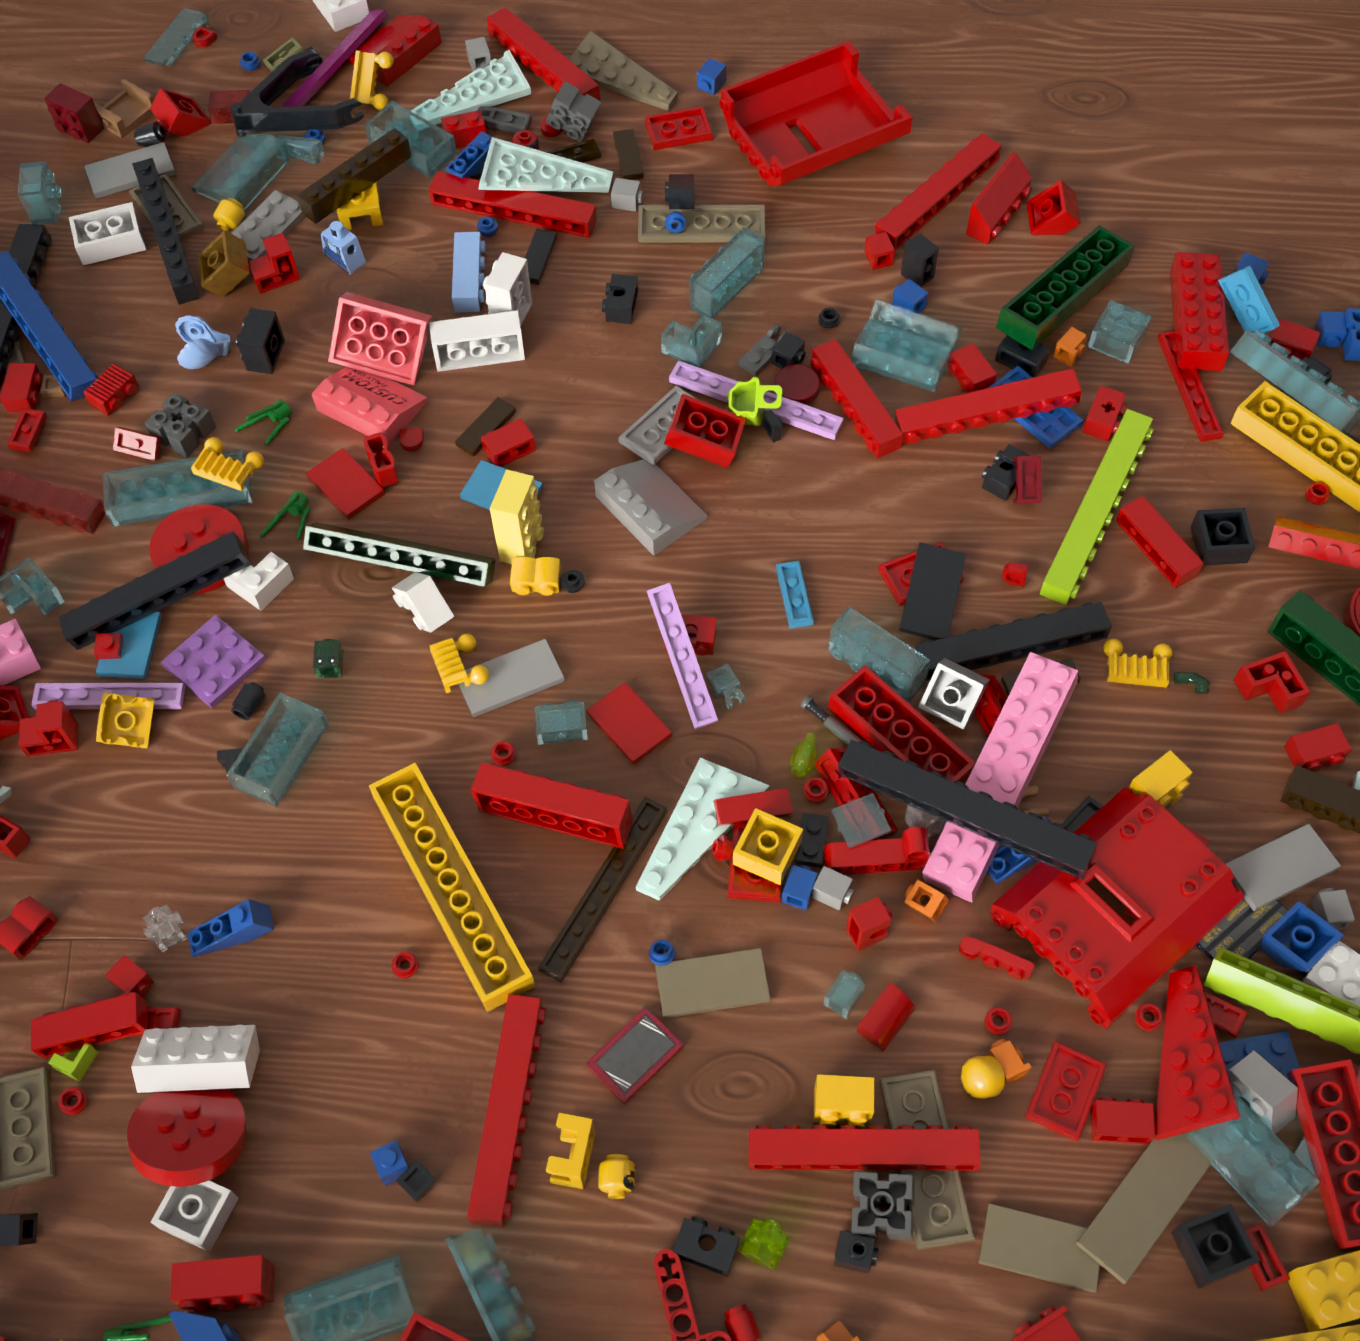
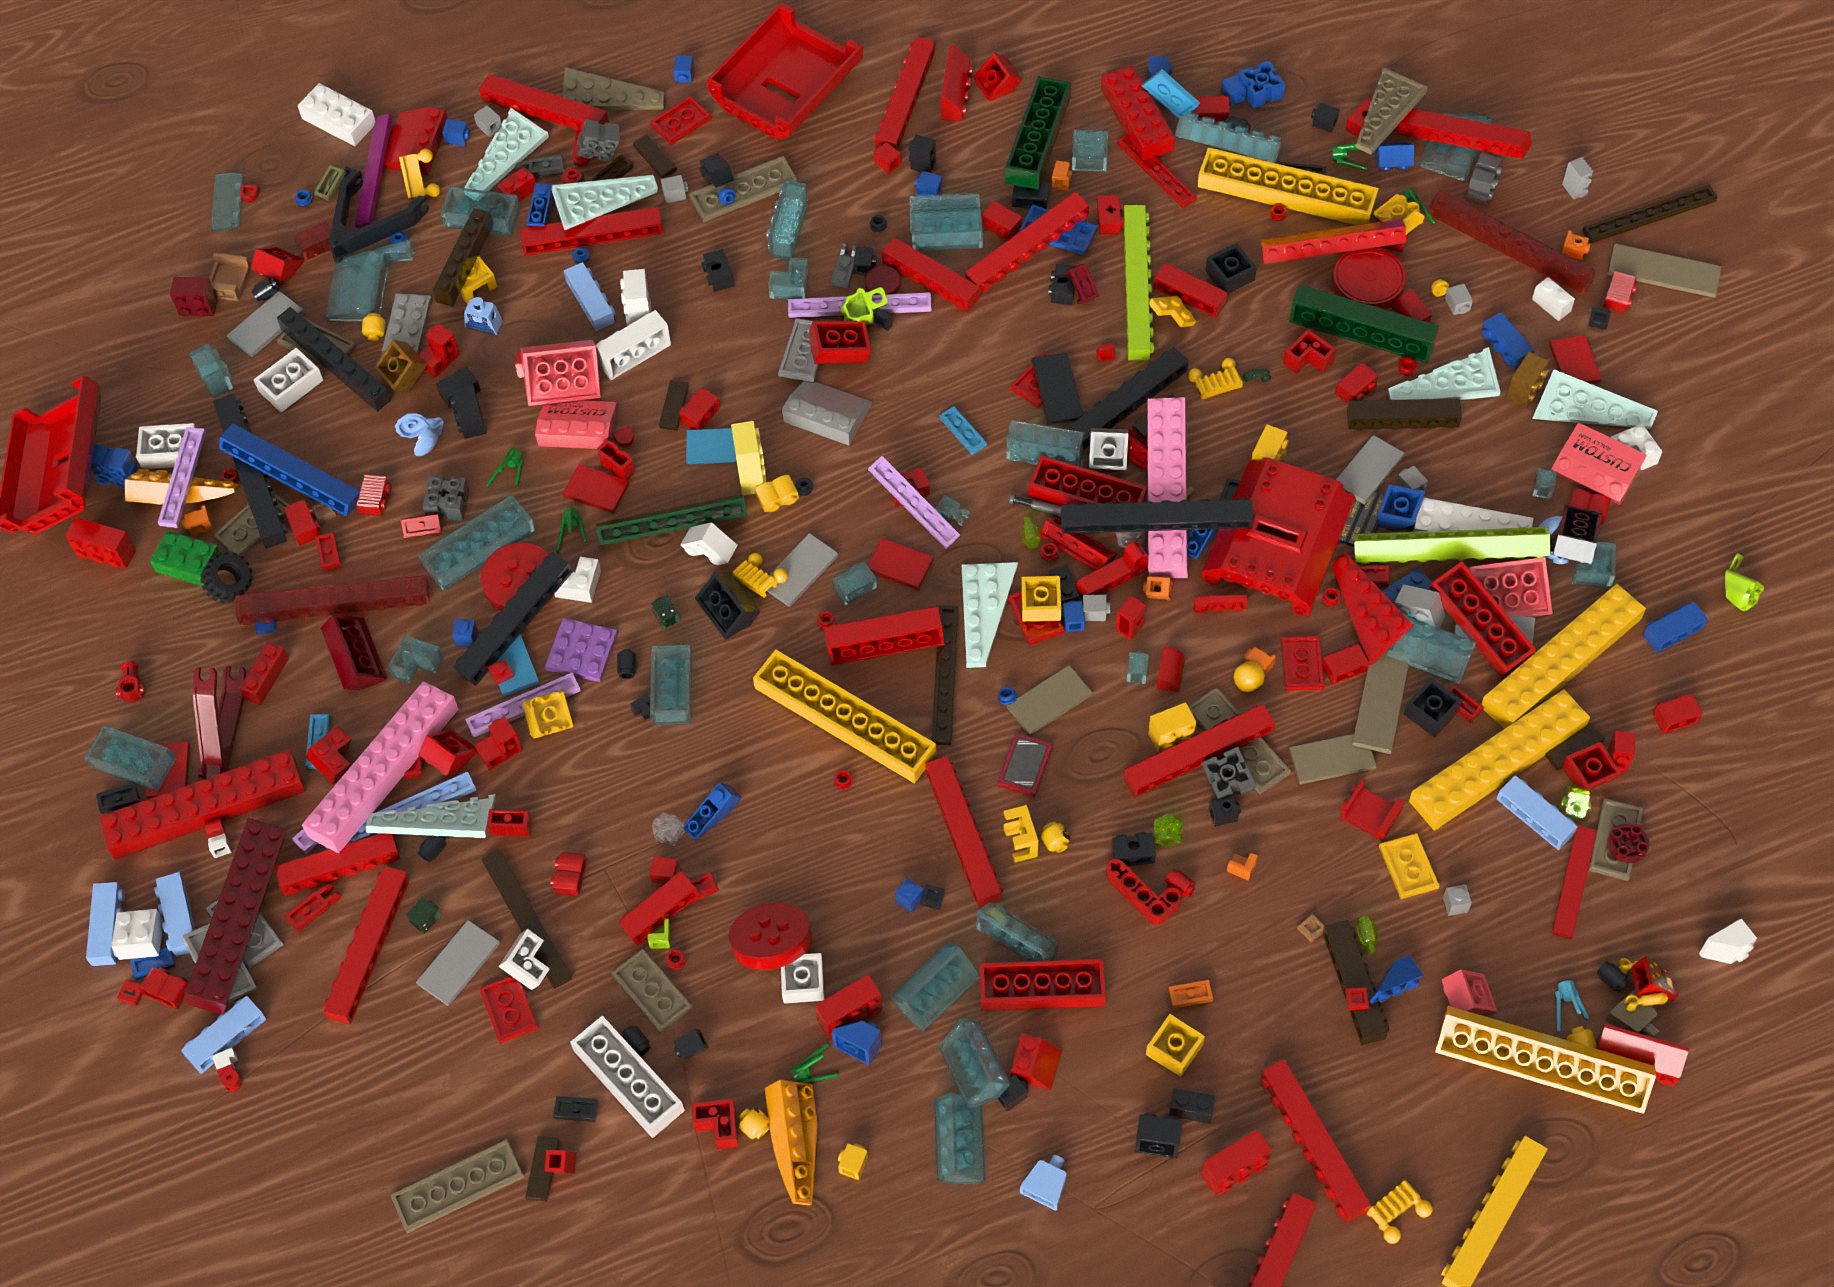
camera: 25 degrees left, 0 degrees up
(99, 581) = (464, 632): none -> blue brick
(196, 1058) = (745, 892): white brick -> none
(225, 470) = (508, 514): yellow gear -> none
(280, 303) = (457, 380): none -> black brick
(402, 681) = (727, 604): none -> black slope
(439, 53) = (456, 132): none -> blue brick
(539, 253) = (632, 255): black tile -> none
(722, 848) = (1009, 615): red plate -> none
(741, 807) = (1012, 581): red tile -> none
(861, 820) = (1091, 556): clear light blue piece -> none
(1002, 1014) = (1243, 637): red plate -> none
(1129, 555) = (1174, 307): none -> yellow plate

